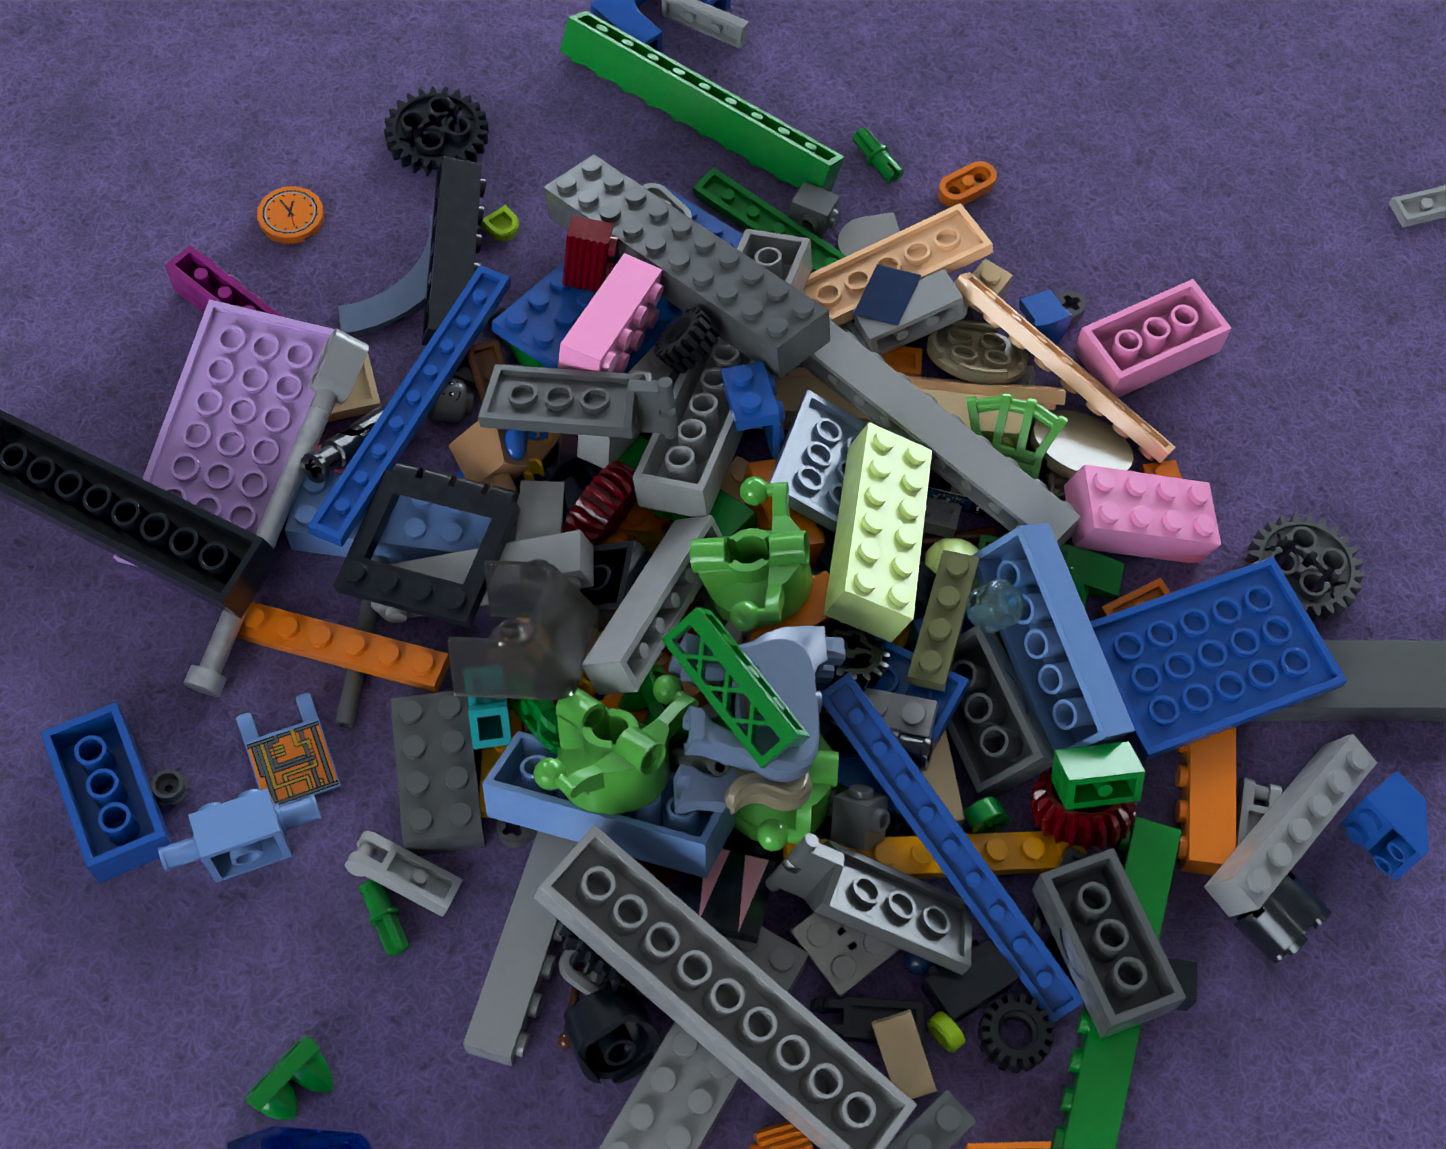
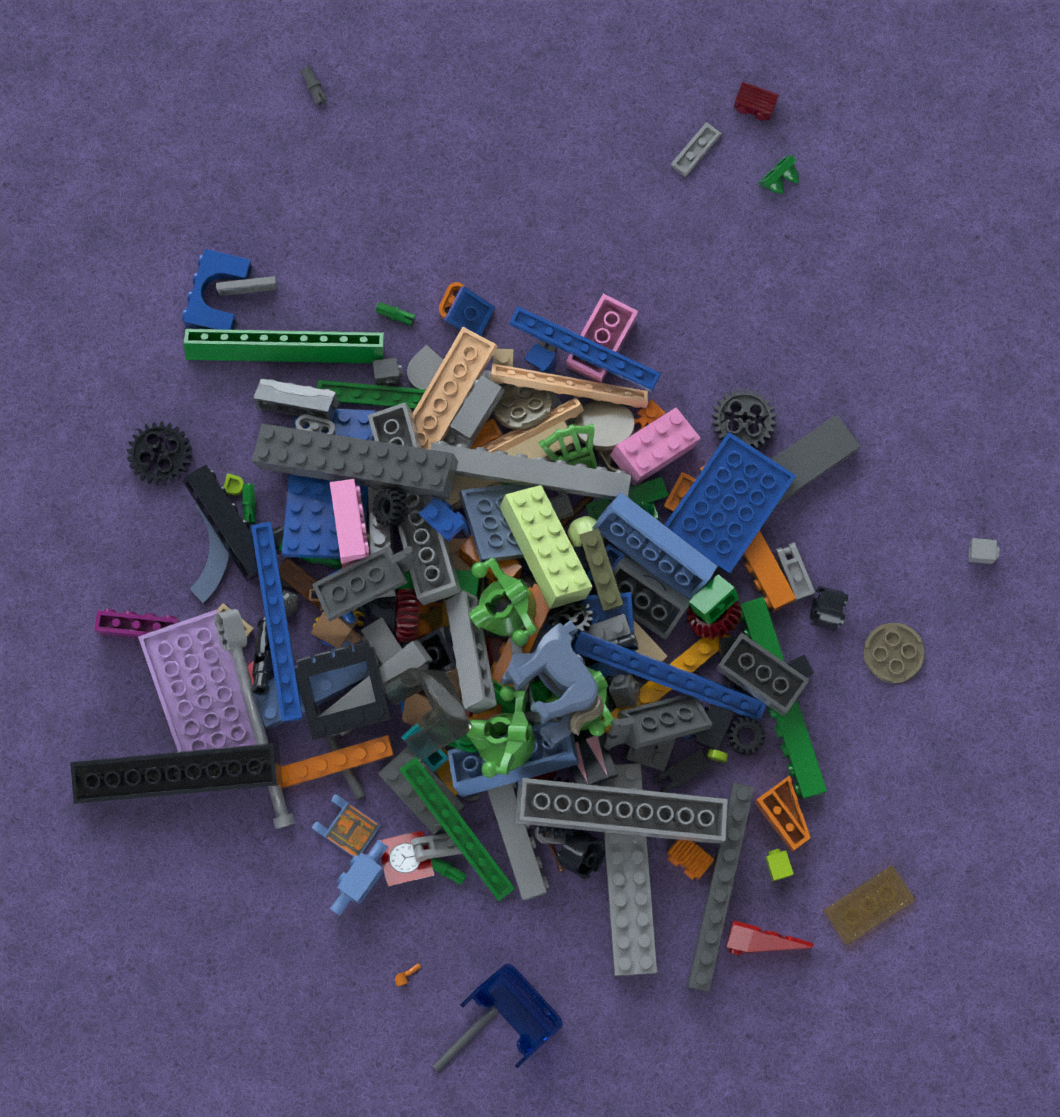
camera: 30 degrees left, 15 degrees up
(106, 792) = (284, 899): blue brick -> none
(169, 778) = (306, 884): dark grey plate -> none
(181, 1039) = (401, 978): none -> orange hand
(290, 214) = (122, 552): orange tile -> none
(301, 1064) = (459, 953): green tile -> none
(320, 853) = (400, 862): none -> sticker
(442, 859) = (456, 828): none -> green plate
(504, 253) = (249, 503): none -> green axle
(588, 253) = (305, 487): dark red brick -> none
(657, 160) = (295, 399): none -> piece
(748, 678) = (547, 674): green fence -> none
(887, 294) = (462, 407): dark blue sticker -> none
(904, 1054) = (706, 778): tan tile -> none
(985, 199) = (469, 312): none -> blue plate
(987, 816) = (676, 647): green beam -> none
(994, 606) = (620, 549): clear light blue head -> none
(1121, 330) = (585, 349): none -> blue tile
(1290, 826) = (809, 562): light grey brick -> none
(1354, 1066) = (894, 652): none -> dark tan tile
(1391, 826) = (851, 532): blue slope -> none

